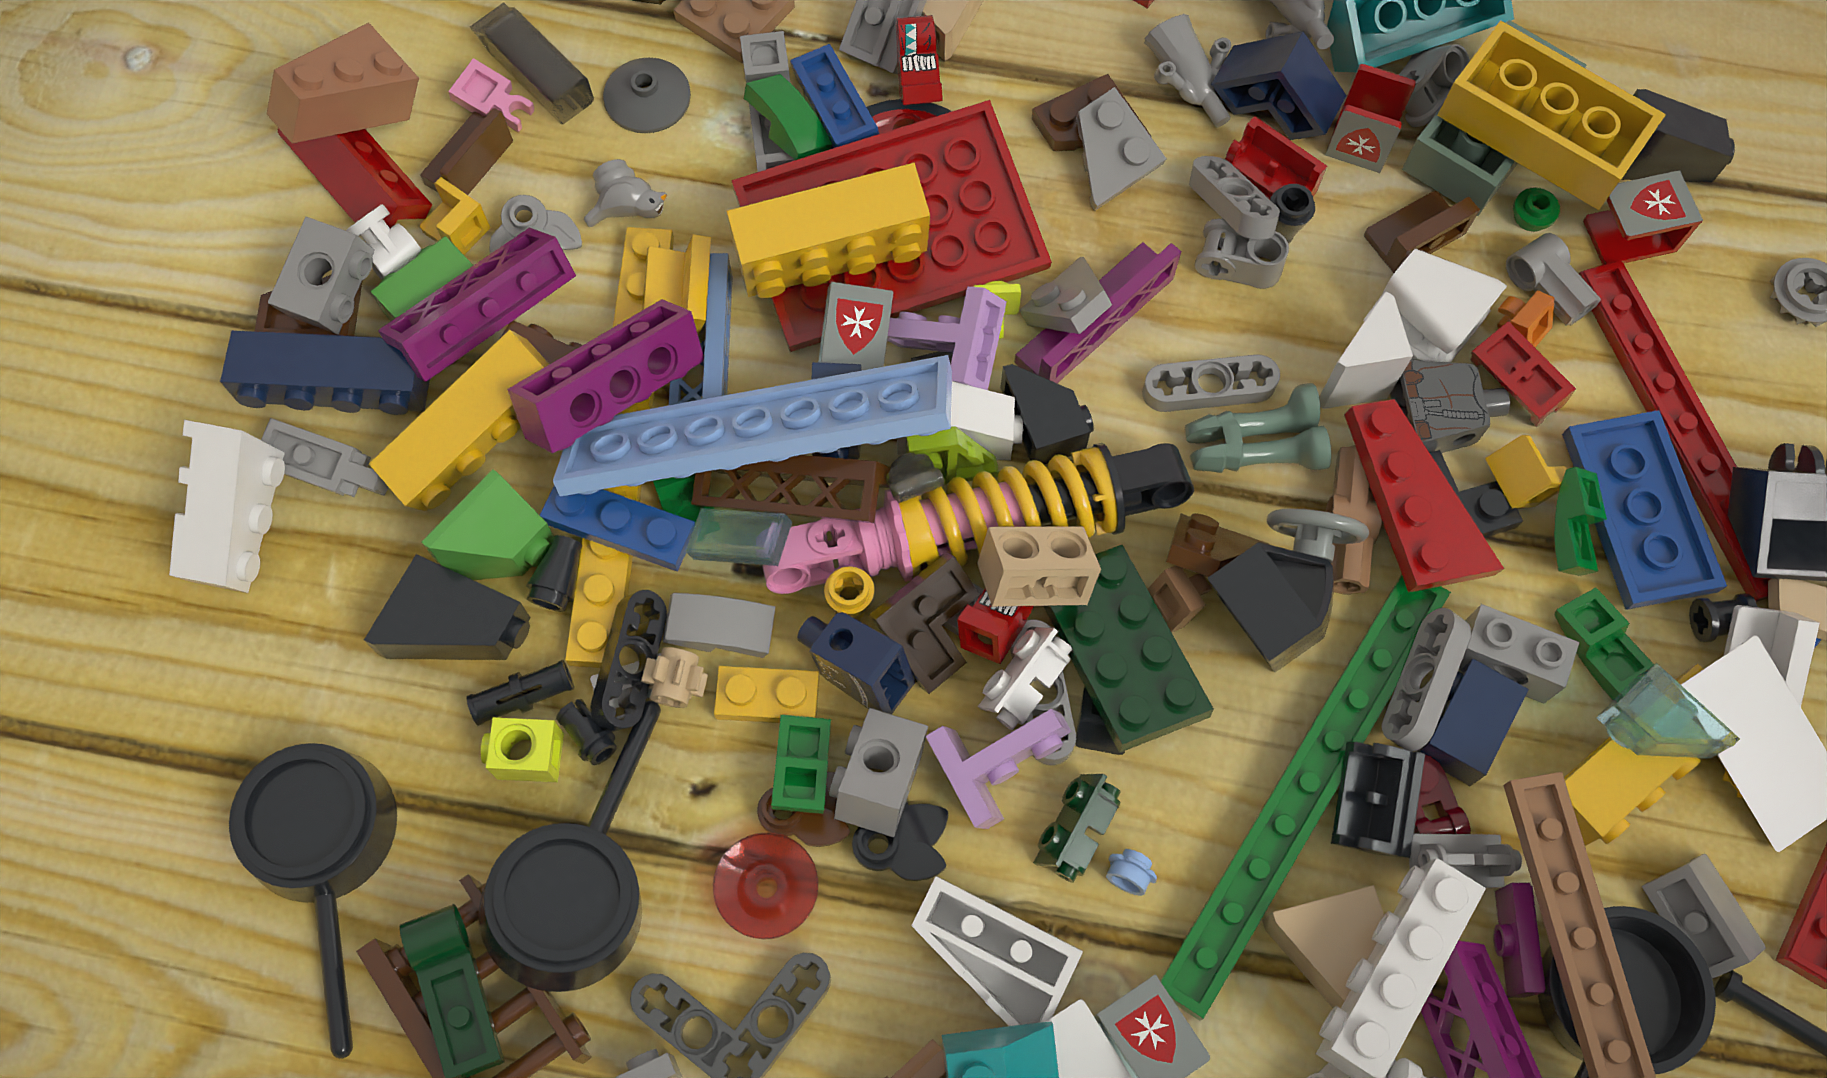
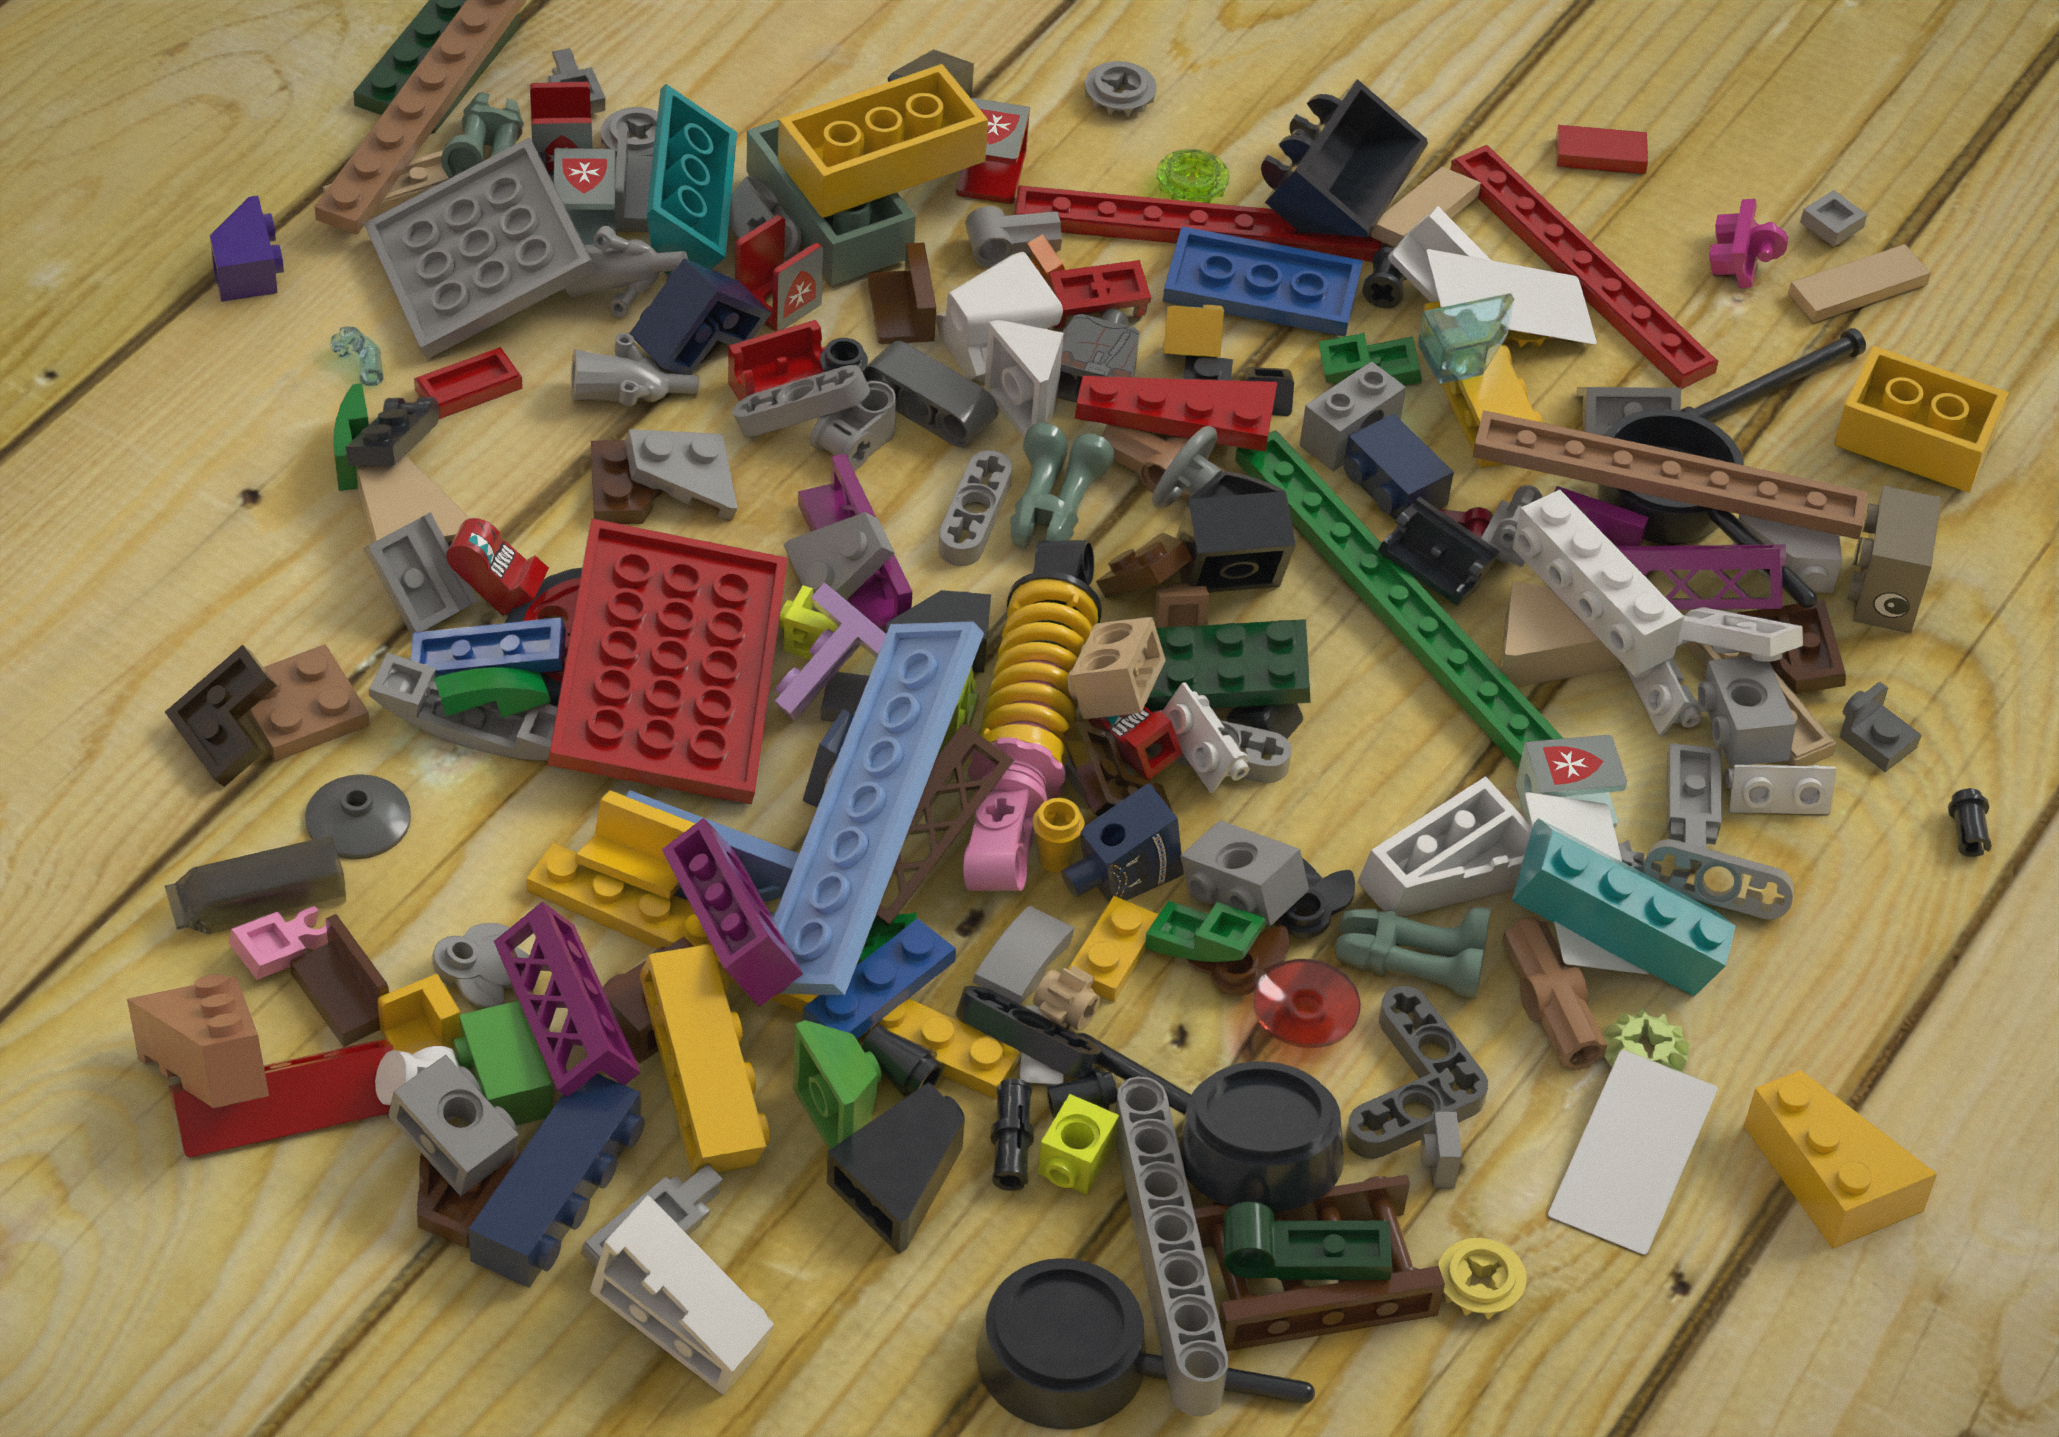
camera: 70 degrees left, 20 degrees down
(408, 870) = (1170, 1248): none -> light grey beam
(623, 194) = (487, 865): light grey animal -> none
(739, 537) = (957, 884): clear light blue tile -> none
(830, 231) = (684, 682): yellow brick -> none
(855, 325) = (782, 720): piece -> none
(910, 1005) = (1372, 938): none -> sand green piece
(912, 476) = (984, 716): clear smoke plate -> none
(994, 762) = (1278, 814): lavender bracket -> none
(1088, 804) = (1355, 768): dark green hinge -> none
(1131, 872) = (1418, 747): light blue plate -> none
(1316, 292) = (933, 393): none -> dark grey beam
(1414, 723) = (1329, 468): light grey beam -> none
(1521, 568) = (1285, 386): none -> black slope
(1530, 217) = (933, 217): green plate -> none
(1576, 508) = (1248, 312): green slope -> none
(1745, 380) = (1210, 173): none -> clear neon green gear

